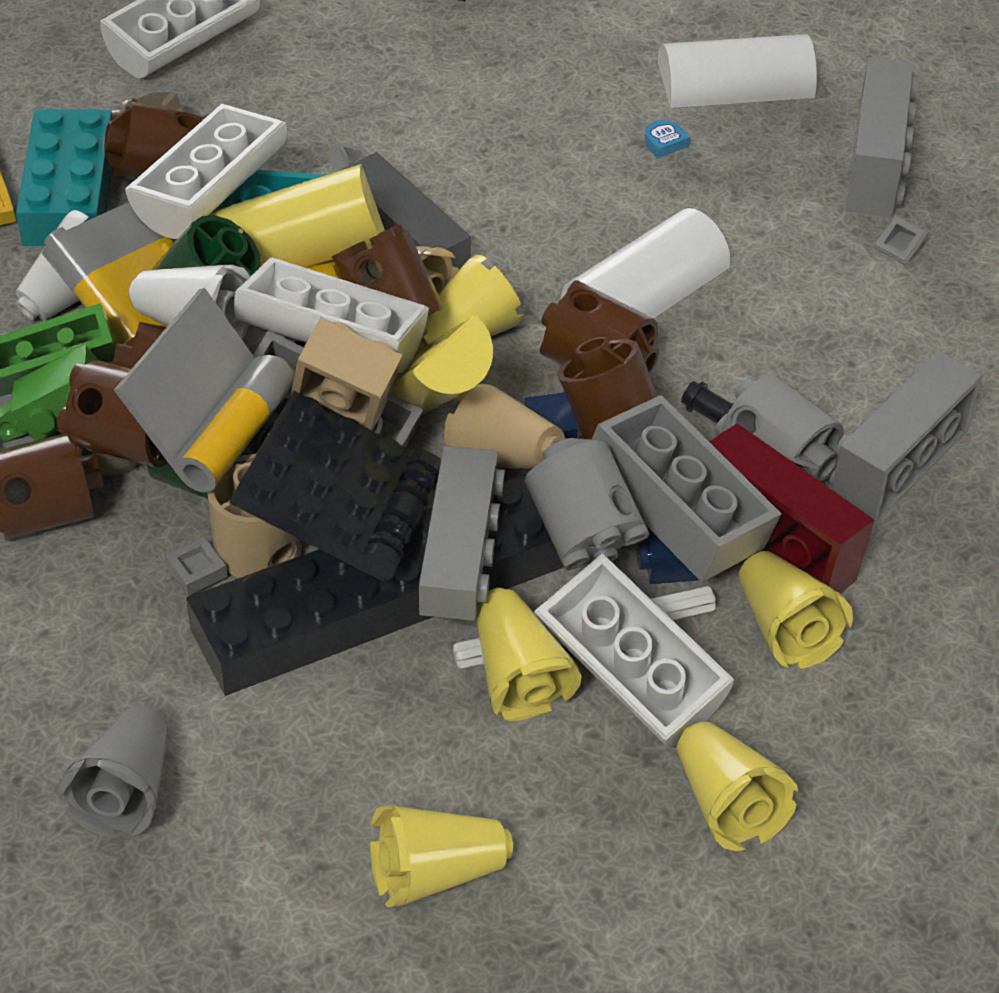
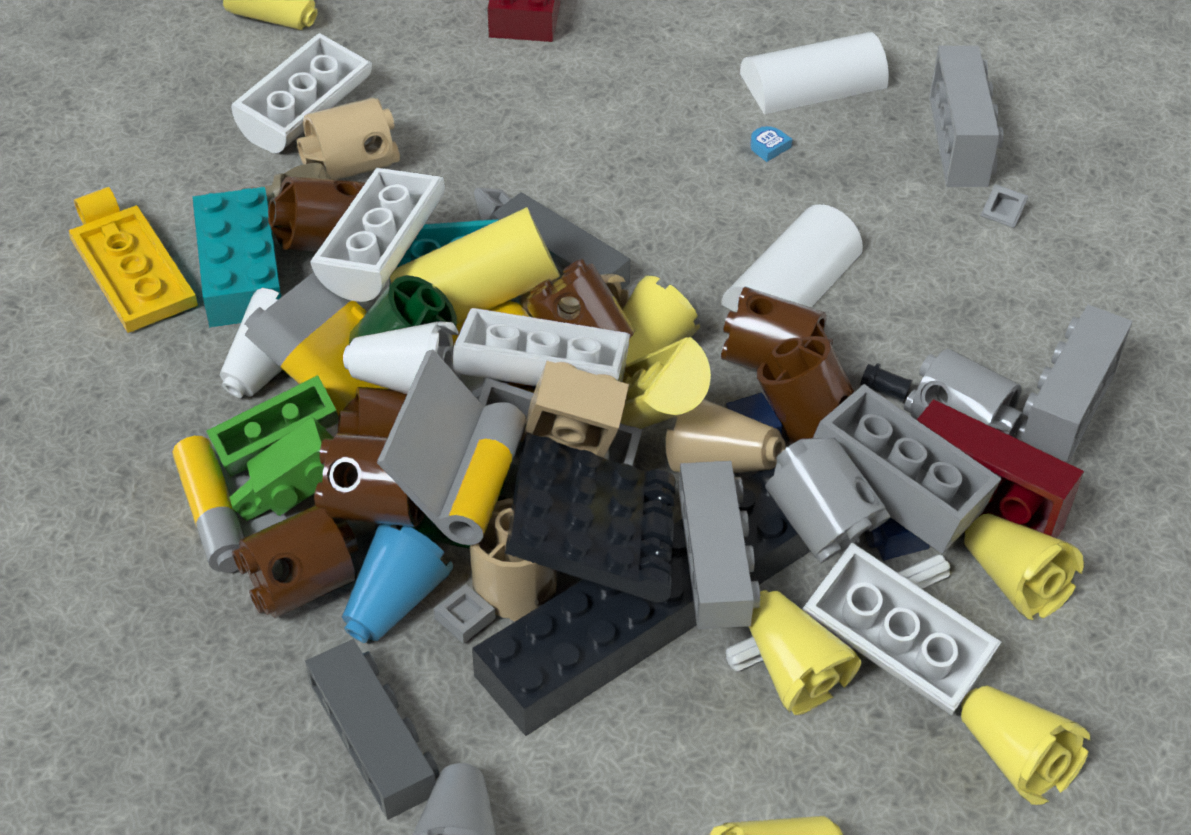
camera: 10 degrees left, 0 degrees up
(69, 659) = (372, 728): none -> dark grey brick
(129, 521) = (392, 581): none -> dark azure cone
(213, 72) = (349, 138): none -> tan cylinder

